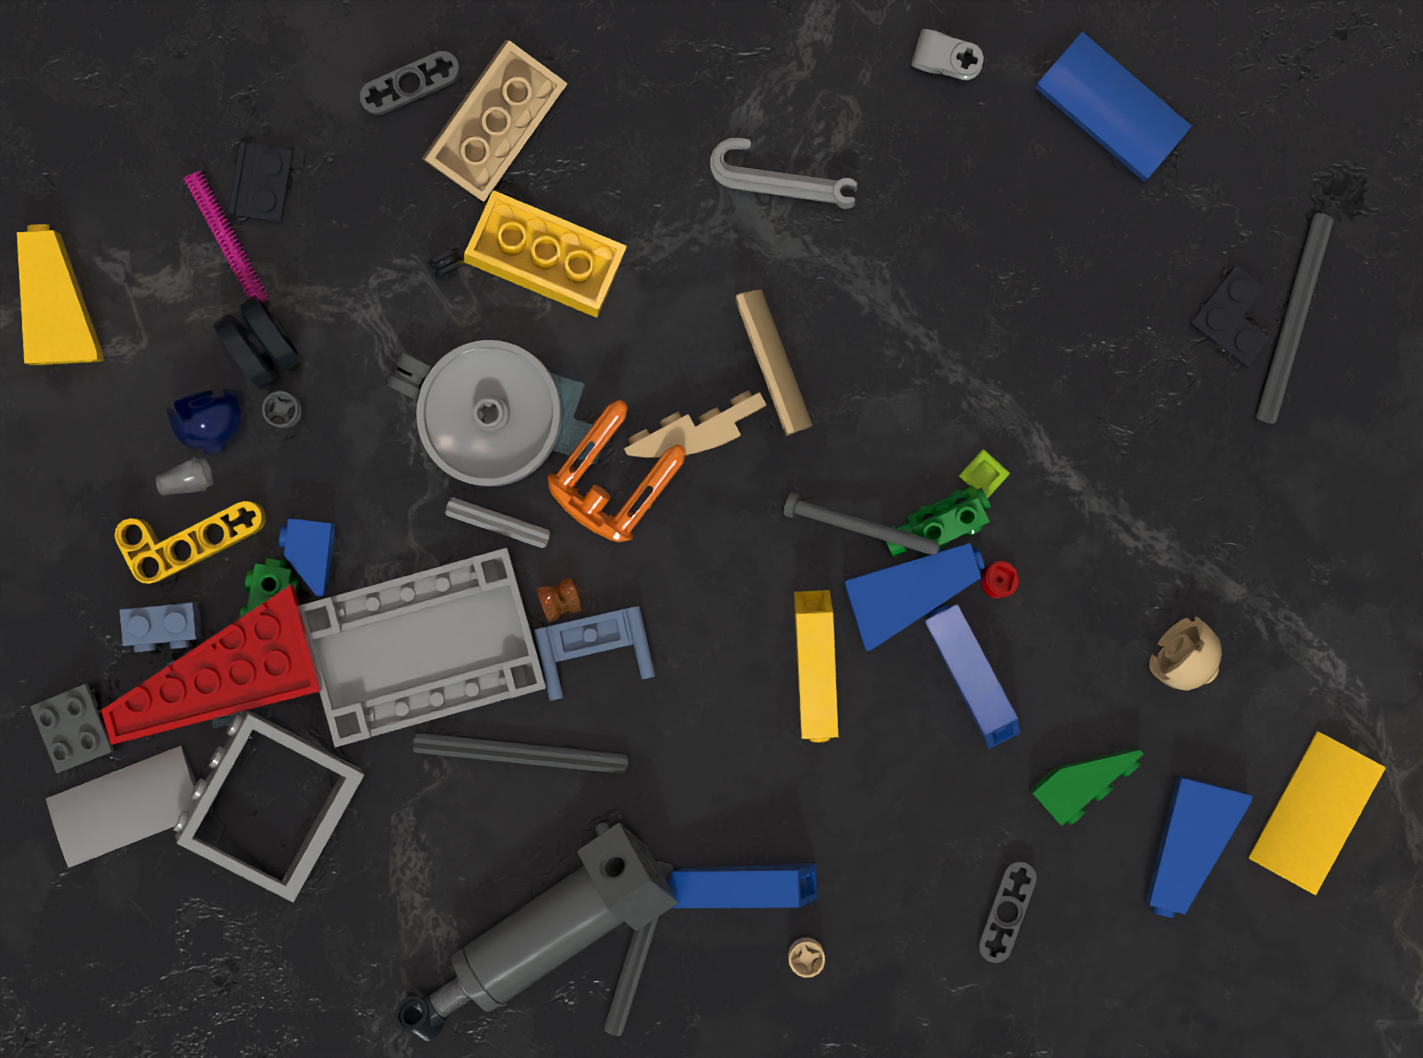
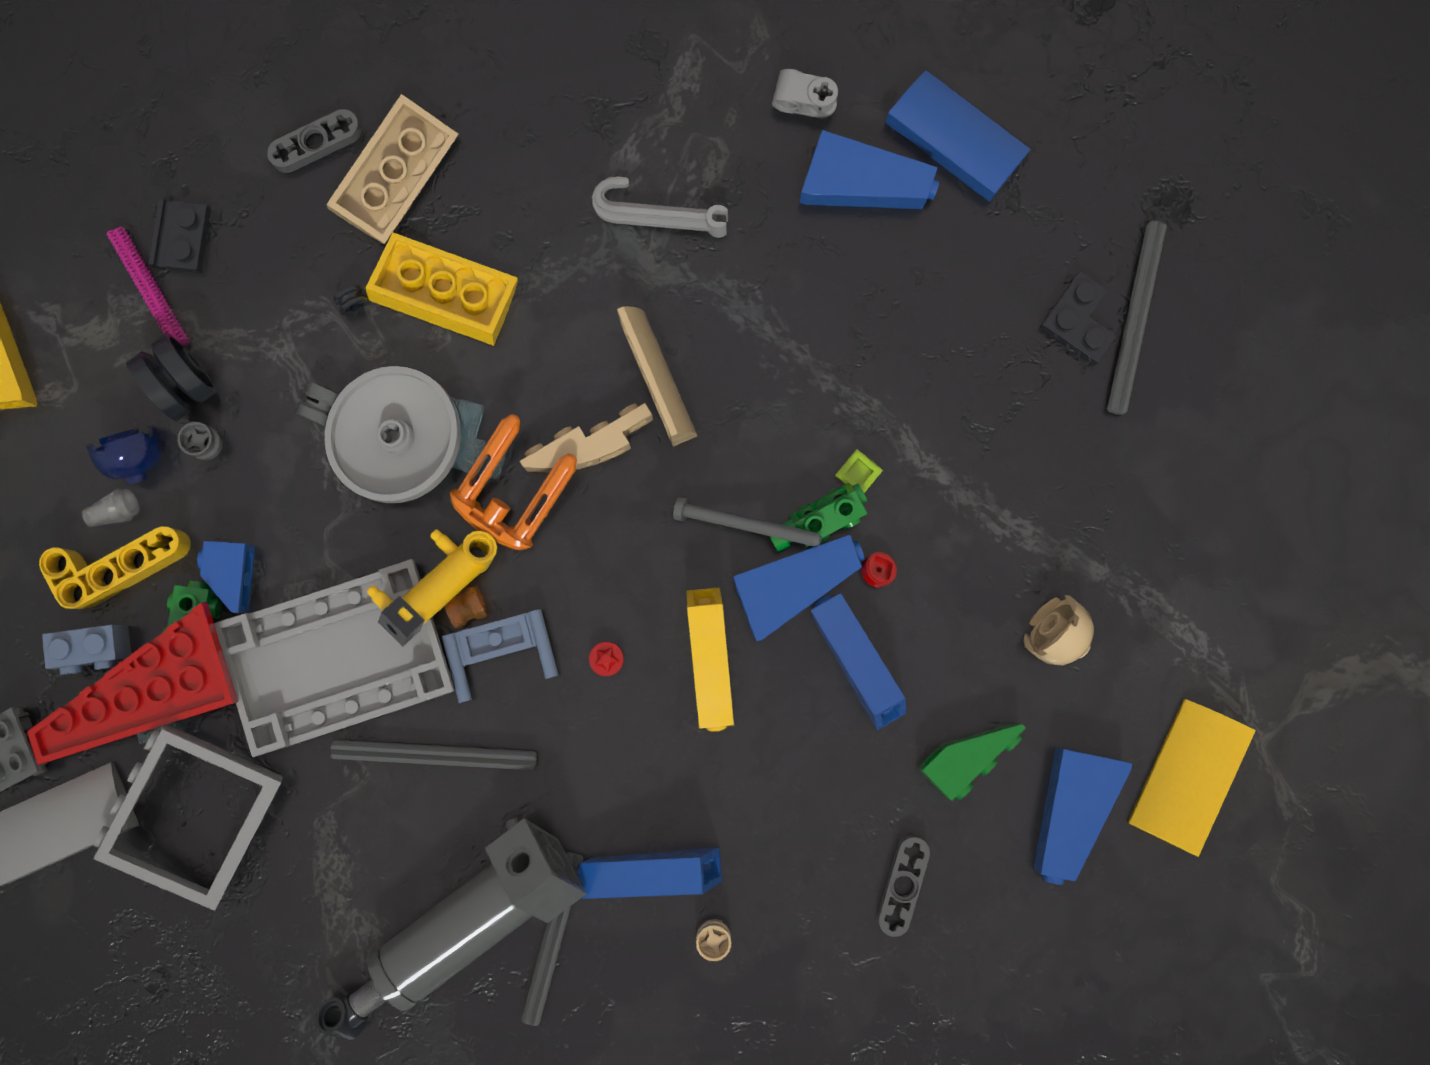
camera: 10 degrees left, 5 degrees down
(497, 522) = (398, 535): light grey axle -> none
(535, 579) = (408, 614): none -> yellow piece
(706, 661) = (606, 659): none -> red tile
(1005, 150) = (865, 176): none -> blue slope

